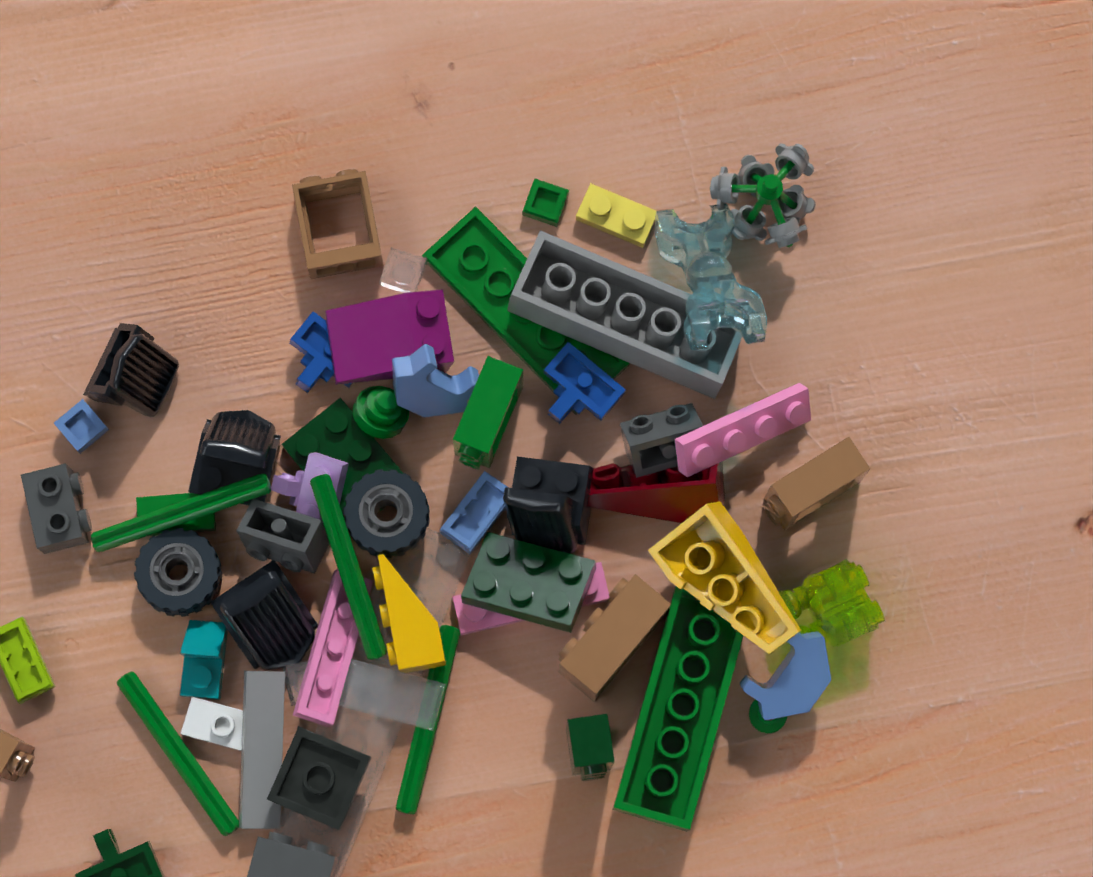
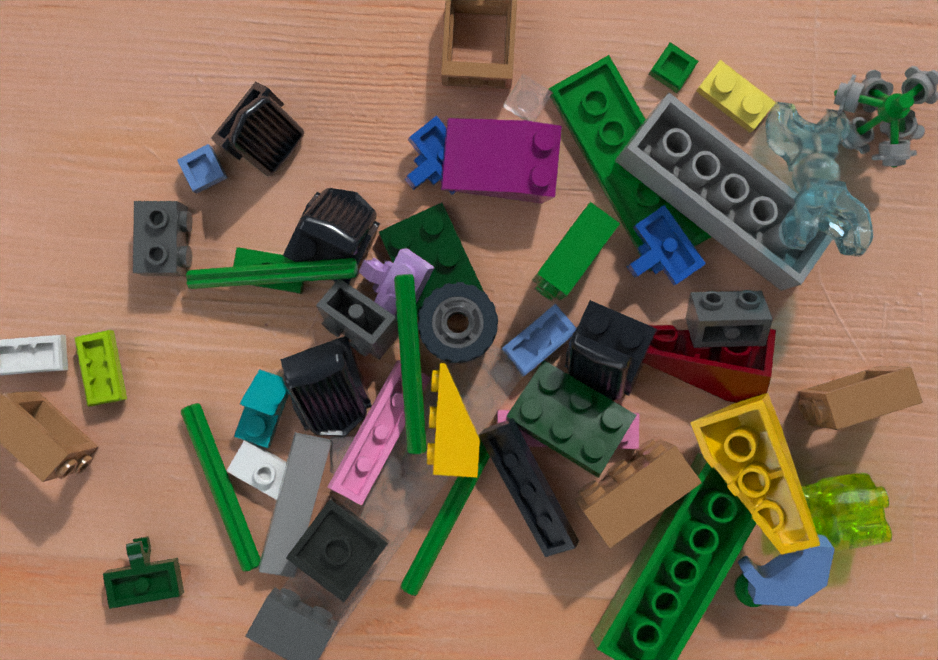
camera: 15 degrees right, 10 degrees up
(174, 549) = (236, 319): black wheel -> none
(378, 412) = (475, 225): green plate -> none
(392, 694) = (421, 492): clear piece -> none
(428, 390) = (523, 217): medium blue piece -> none
(504, 666) = (529, 488): none -> black plate
(590, 746) = (591, 592): dark green brick -> none
(742, 429) = (804, 329): bright pink plate -> none

